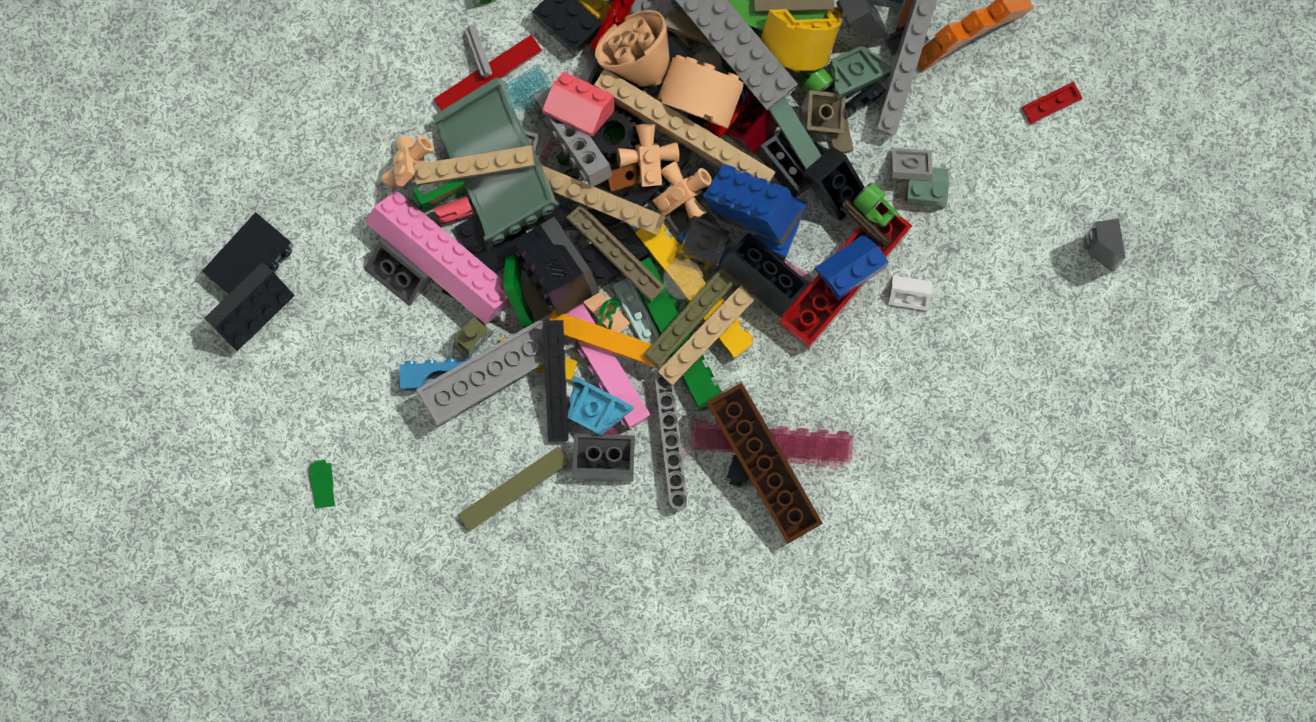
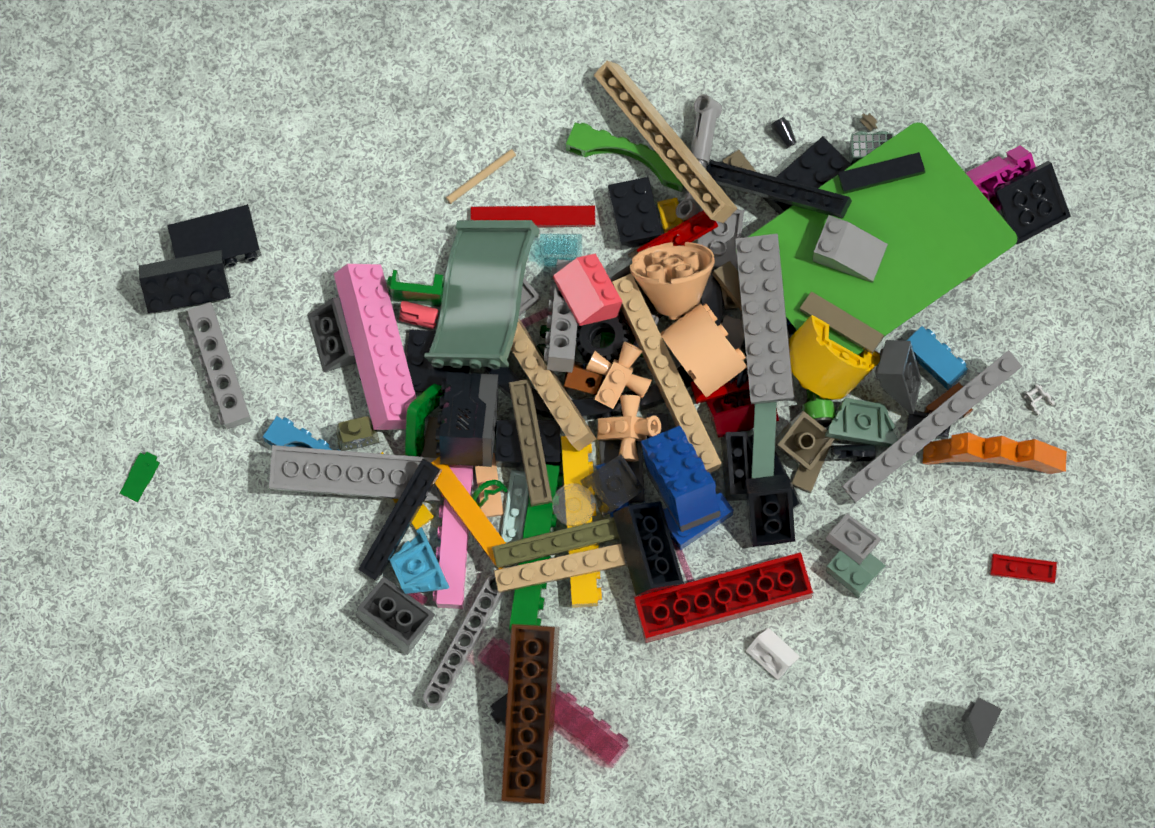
camera: 40 degrees right, 5 degrees down
(285, 322) = (197, 318): none -> light grey brick
(405, 158) = (408, 245): light nougat brick -> none
(424, 69) = (481, 176): none -> tan bar
(474, 165) = (458, 284): tan plate -> none
(478, 51) = (537, 190): light grey axle -> none
(513, 489) = (299, 591): olive tile -> none
(852, 266) = (731, 593): blue slope -> none
(869, 199) = (788, 543): bright green piece -> none
(872, 230) = (771, 571): dark brown pin -> none

